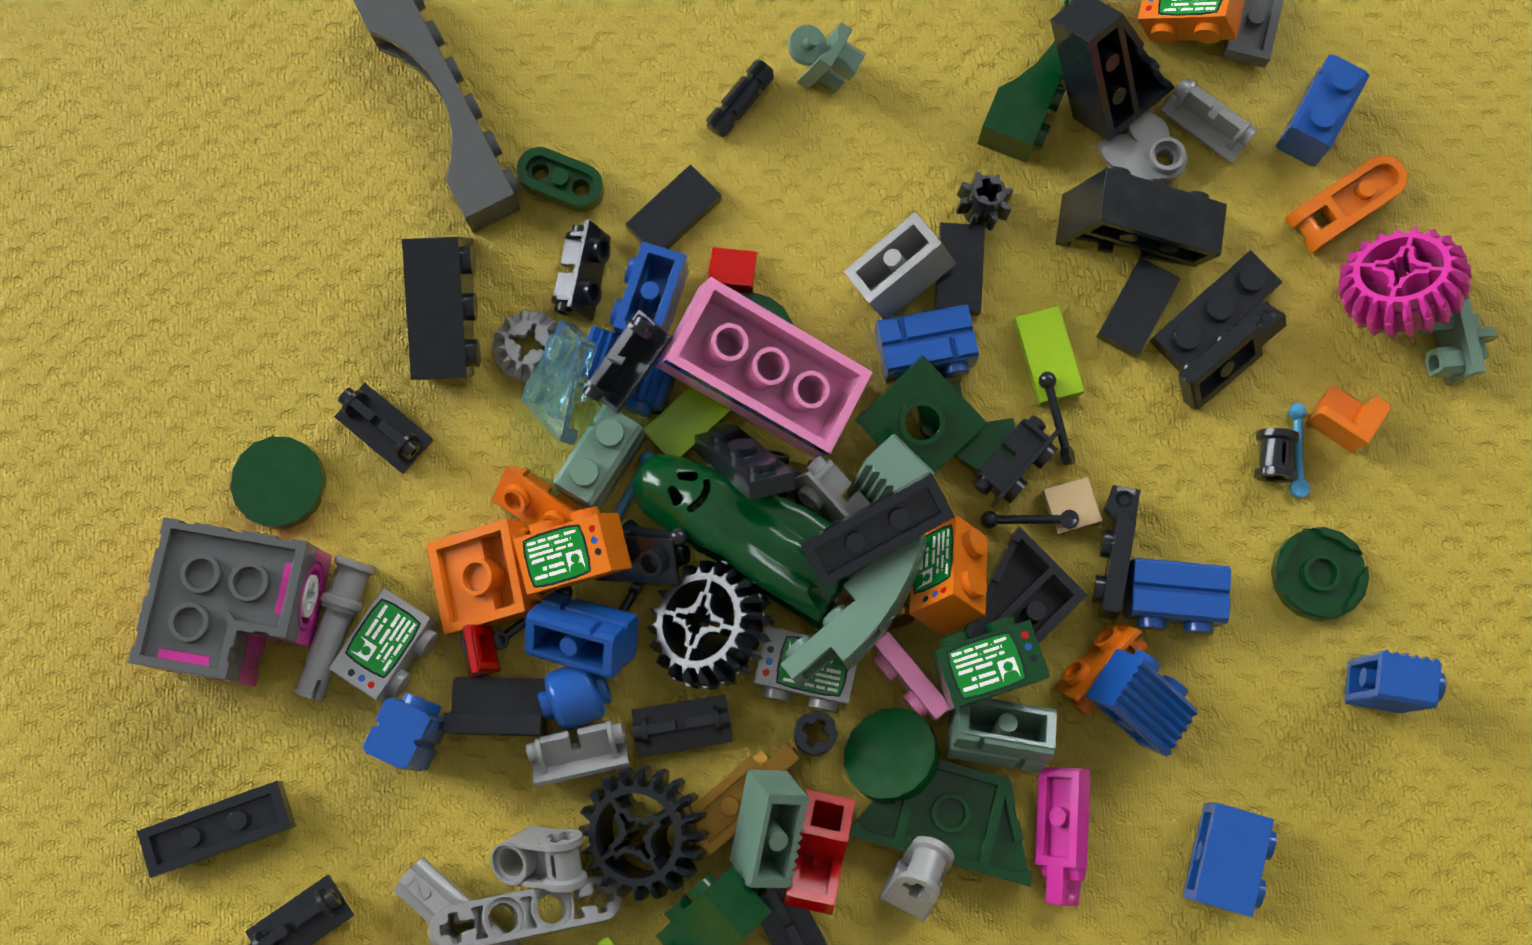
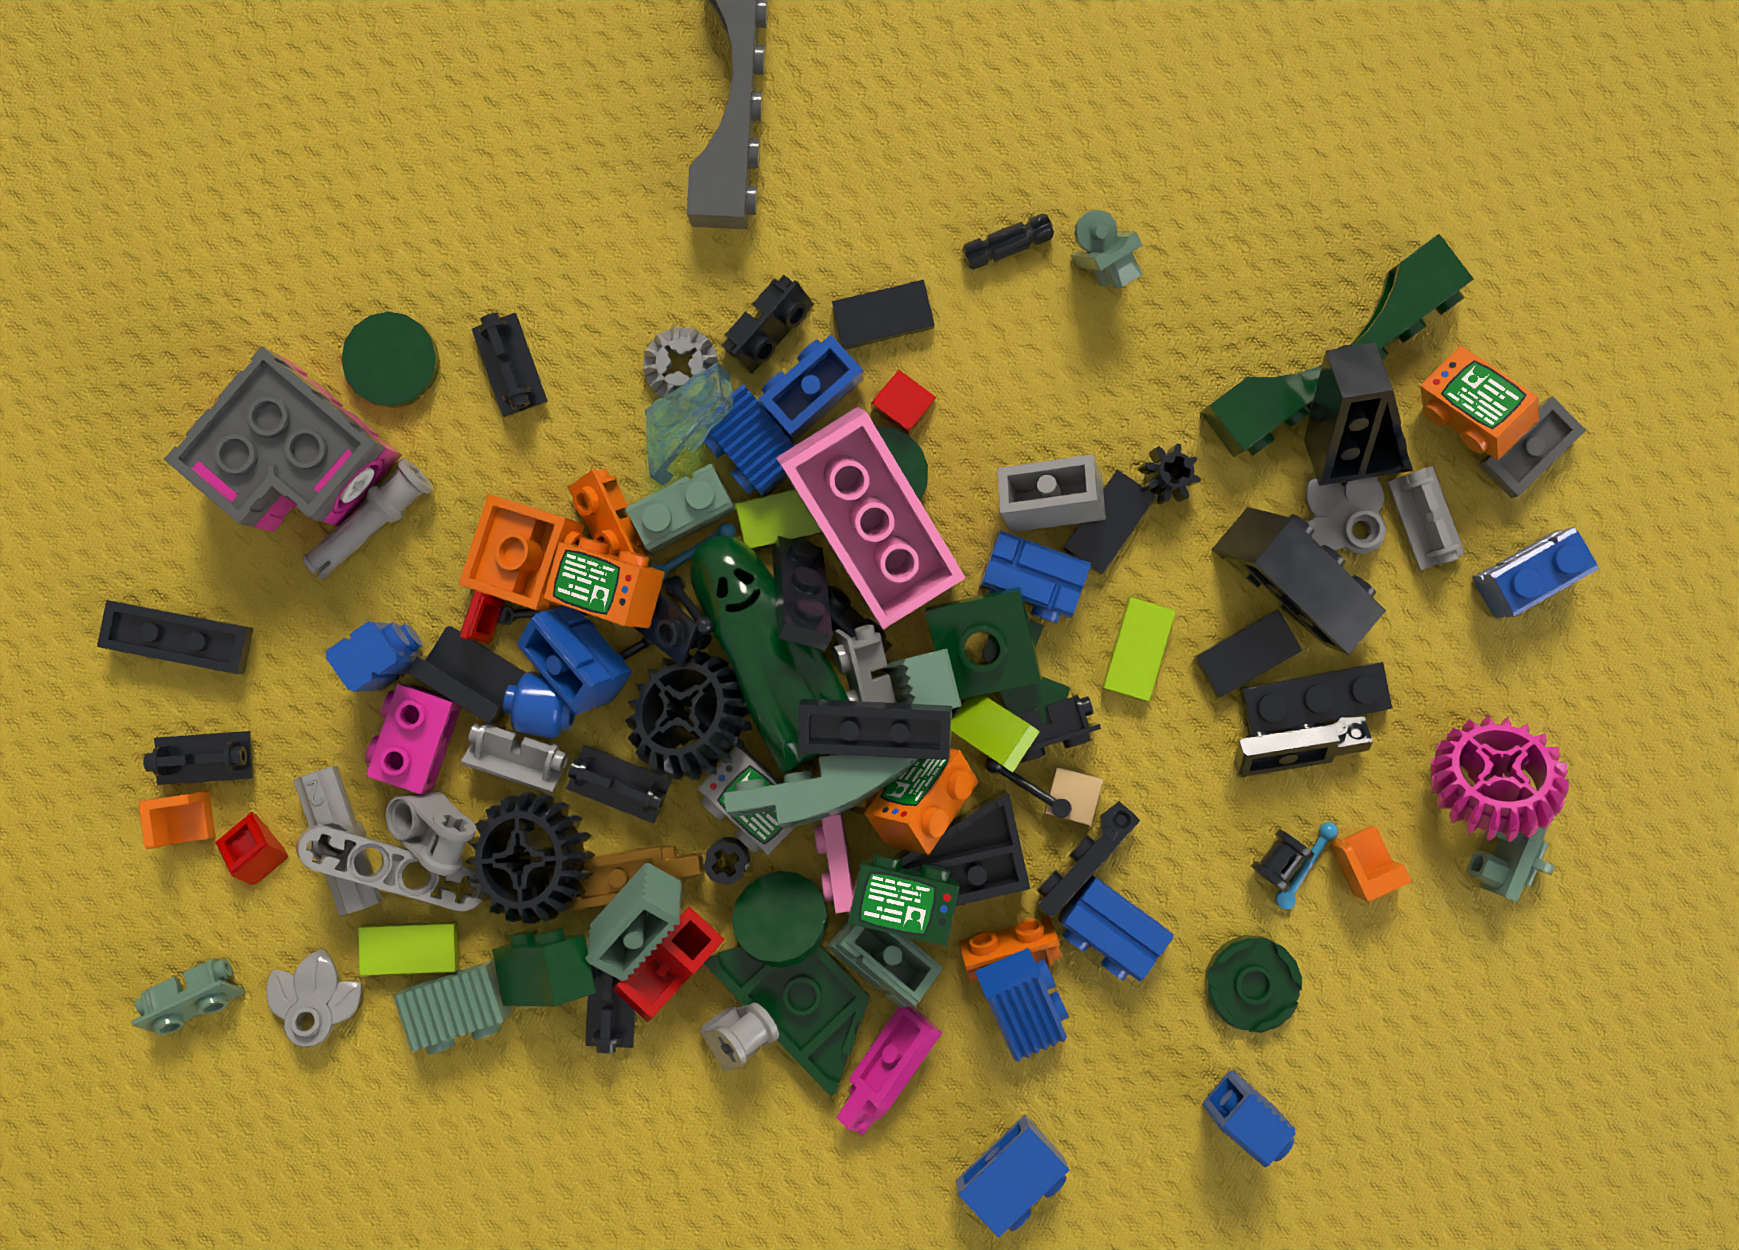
camera: 30 degrees right, 10 degrees up
(385, 647) = (402, 565): brick -> none
(441, 307) = (619, 283): black wedge -> none
(478, 790) = (412, 738): none -> dark pink brick
(563, 179) = (799, 225): dark green plate -> none
(627, 362) = (750, 440): black hinge -> none
(977, 484) = (993, 730): none -> lime tile
(1047, 381) = (1120, 674): black hinge -> none
(1349, 200) = (1504, 670): orange plate -> none

